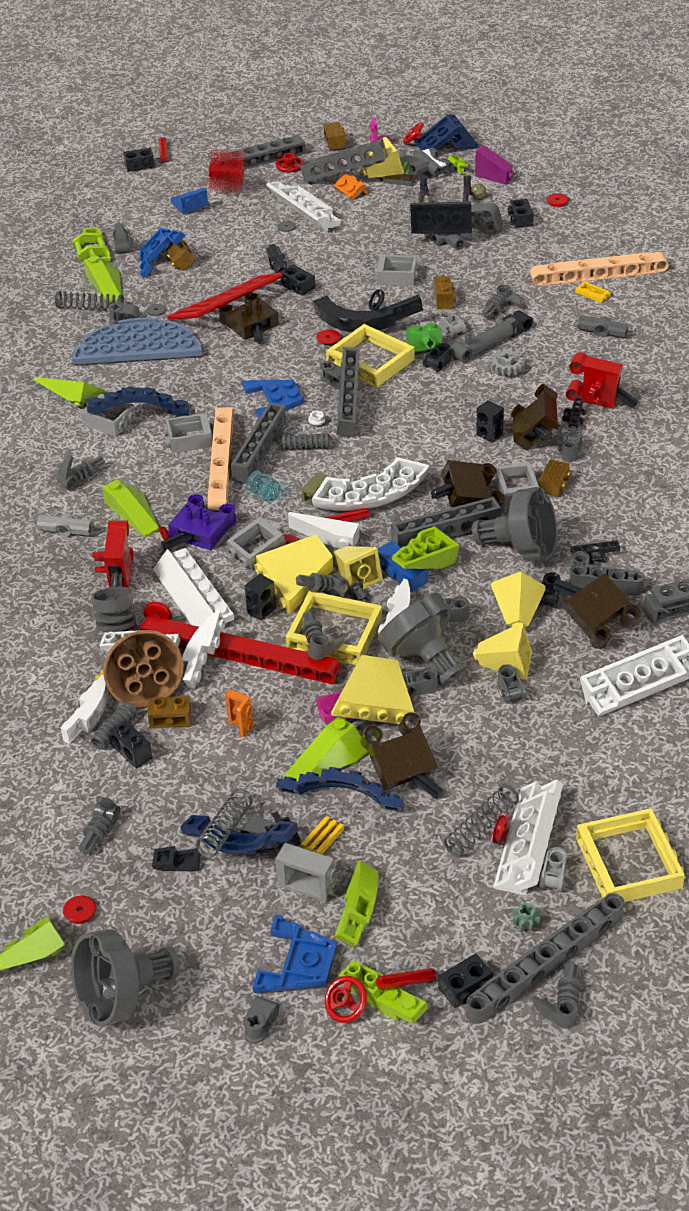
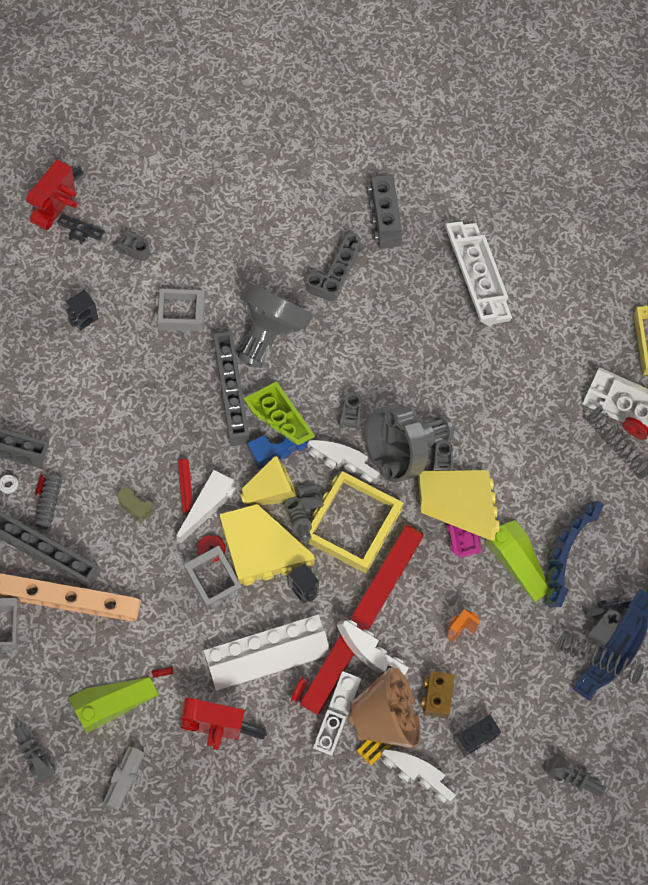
camera: 85 degrees left, 25 degrees up
(102, 736) = (445, 750): dark grey piece -> none
(113, 609) = (283, 727): dark grey wheel -> none
(172, 860) = (621, 709): black slope -> none
(198, 525) = (164, 633): dark purple piece -> none
(263, 486) = (120, 555): clear light blue wheel -> none
(319, 643) = (387, 537): dark grey piece -> none
(322, 827) = (618, 573): yellow tile -> none
(371, 490) = (160, 445): white brick -> none
(403, 757) = (551, 489): dark brown piece -> none
(467, 483) = (187, 354): dark brown piece -> none
(507, 647) = (425, 375): light yellow slope -> none
(510, 683) = (466, 382): dark grey piece -> none
(518, 597) = (363, 348): light yellow slope -> none
(537, 419) = (101, 265): dark brown piece -> none
(550, 595) = (347, 319): black piece -> none
(555, 477) = (180, 273): pearl gold brick -> none
(596, 606) = (391, 282): dark brown piece -> none
(611, 546) = (296, 274): black piece -> none

